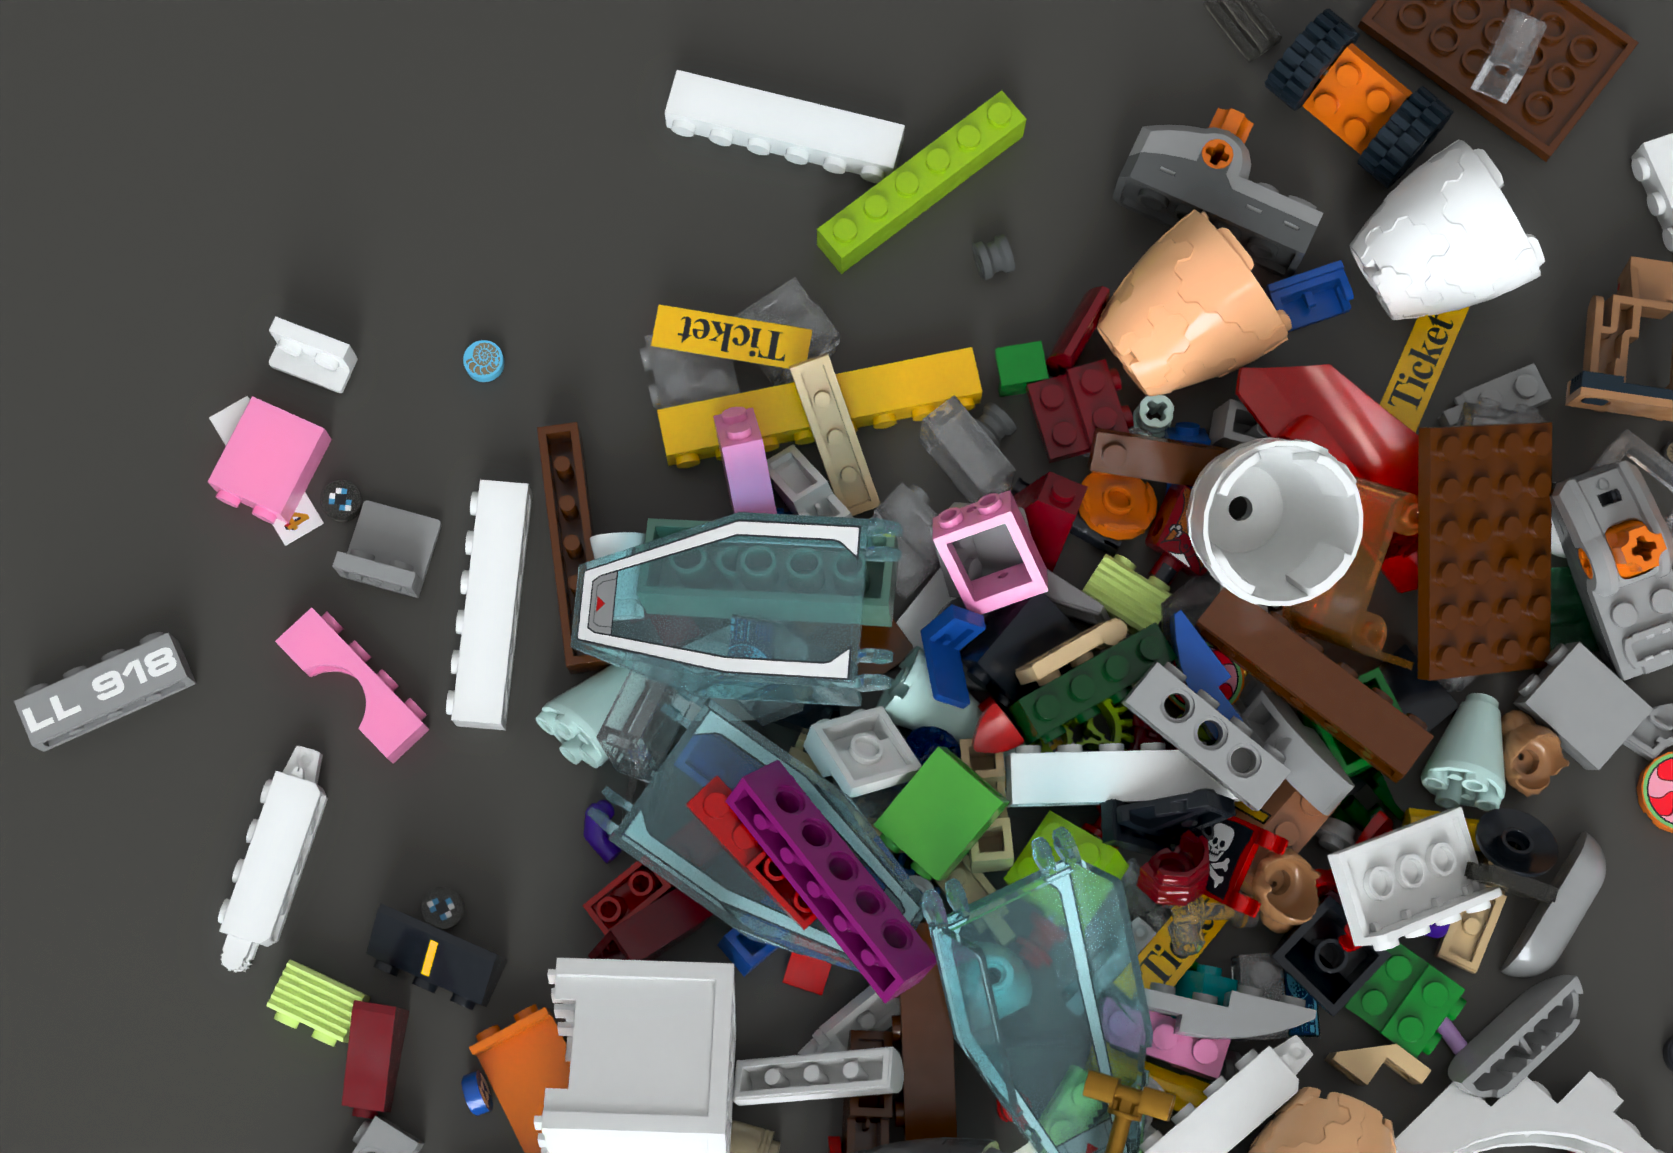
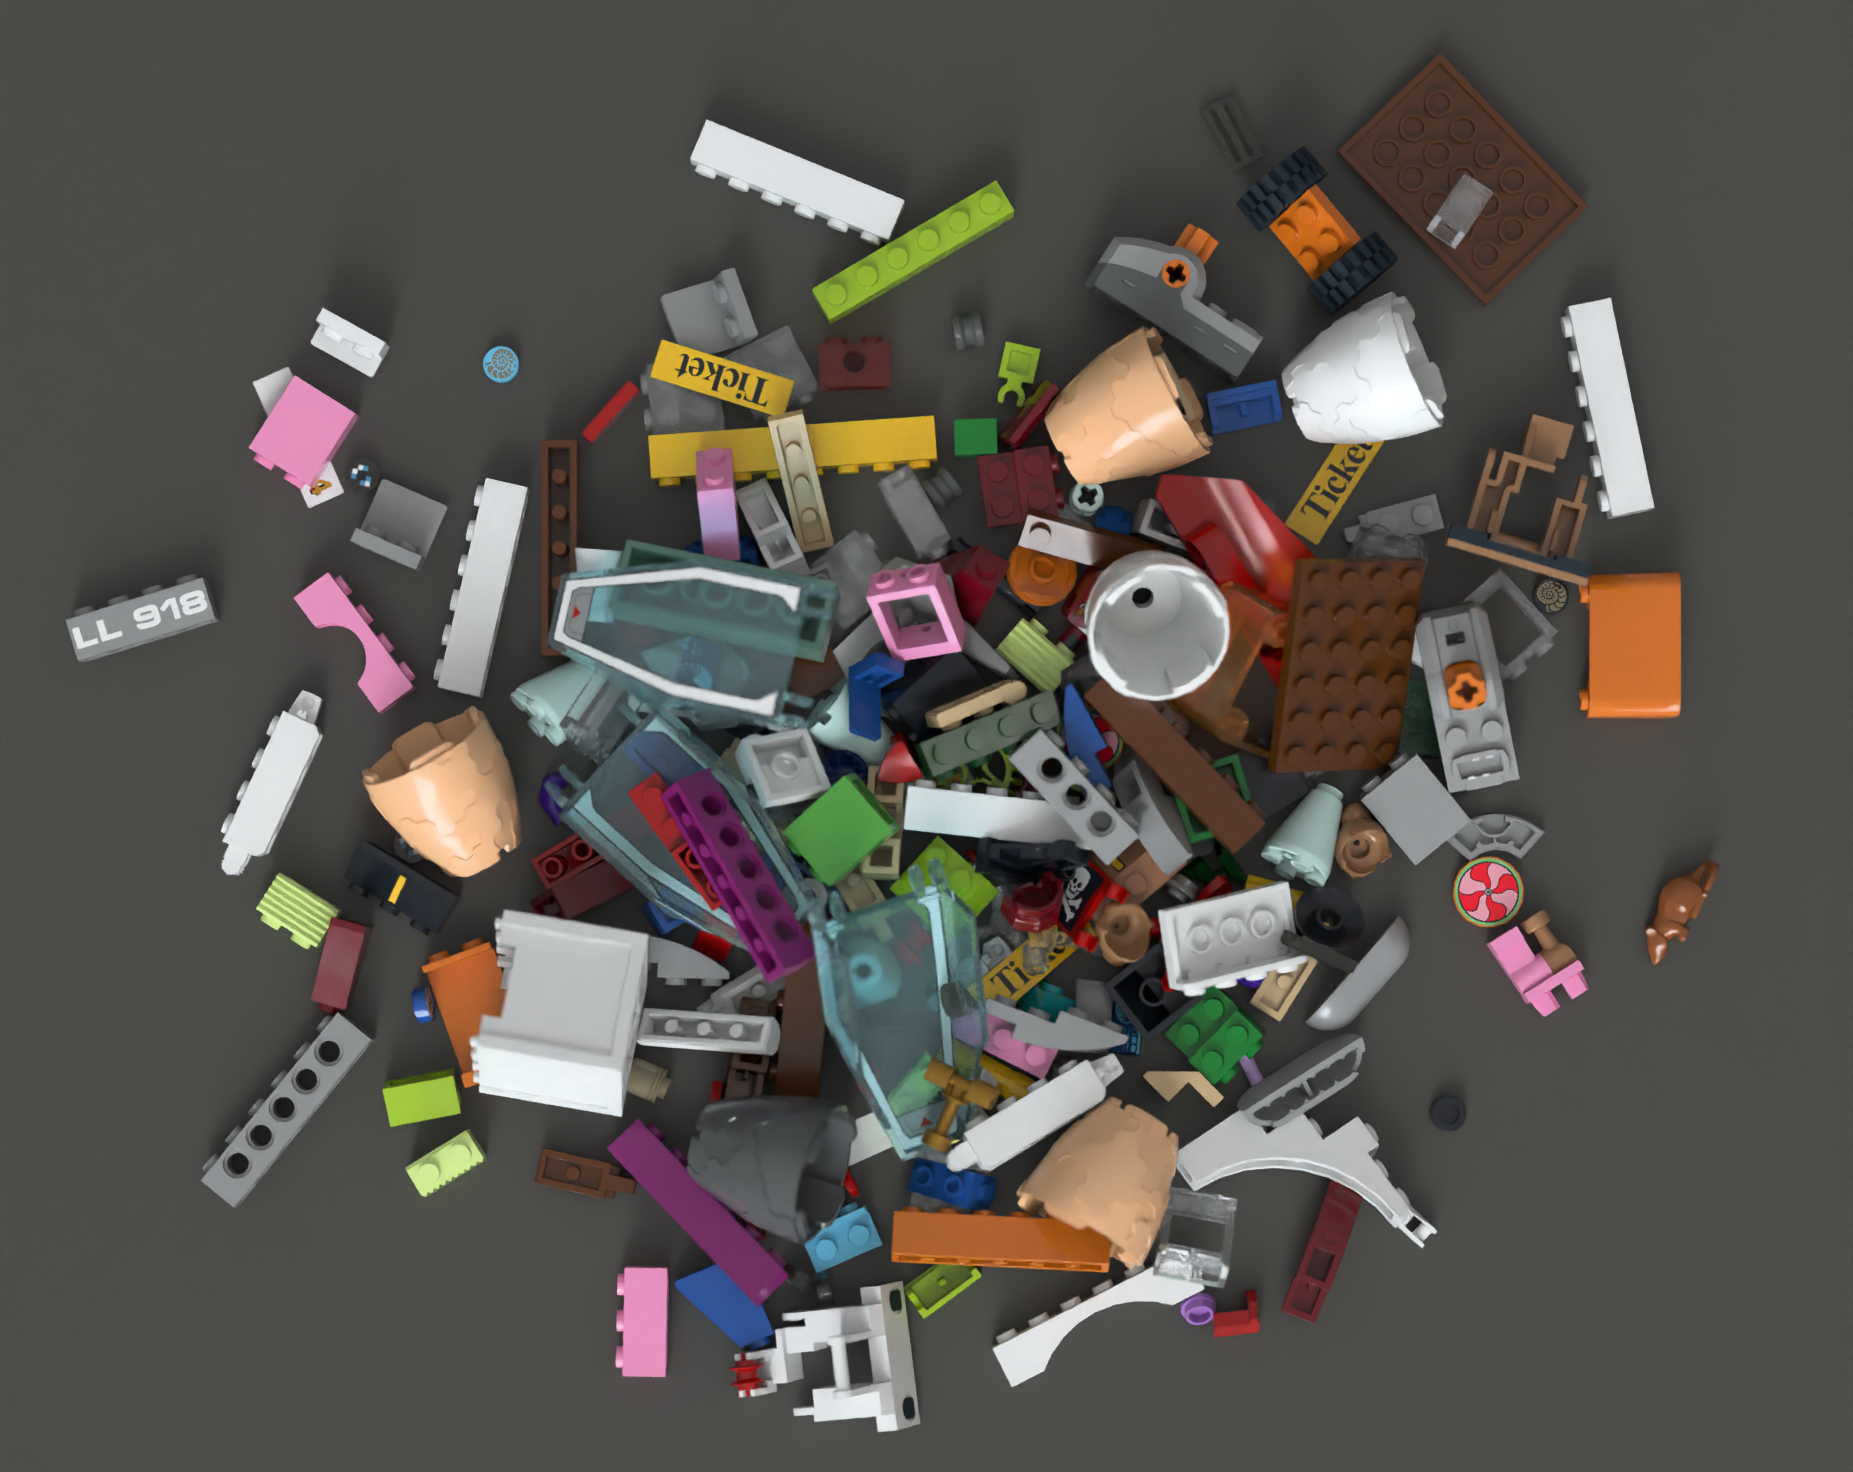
camera: 10 degrees right, 10 degrees up
(479, 838) = (449, 793): none -> light nougat piece
(612, 394) = (611, 413): none -> red tile
(711, 274) = (710, 315): none -> light grey bracket
(774, 1000) = (681, 962): none -> light grey slope
(859, 325) = (873, 376): none -> clear red brick
(1055, 290) = (1017, 367): none -> lime plate
(1103, 995) = (953, 999): none -> clear smoke tile

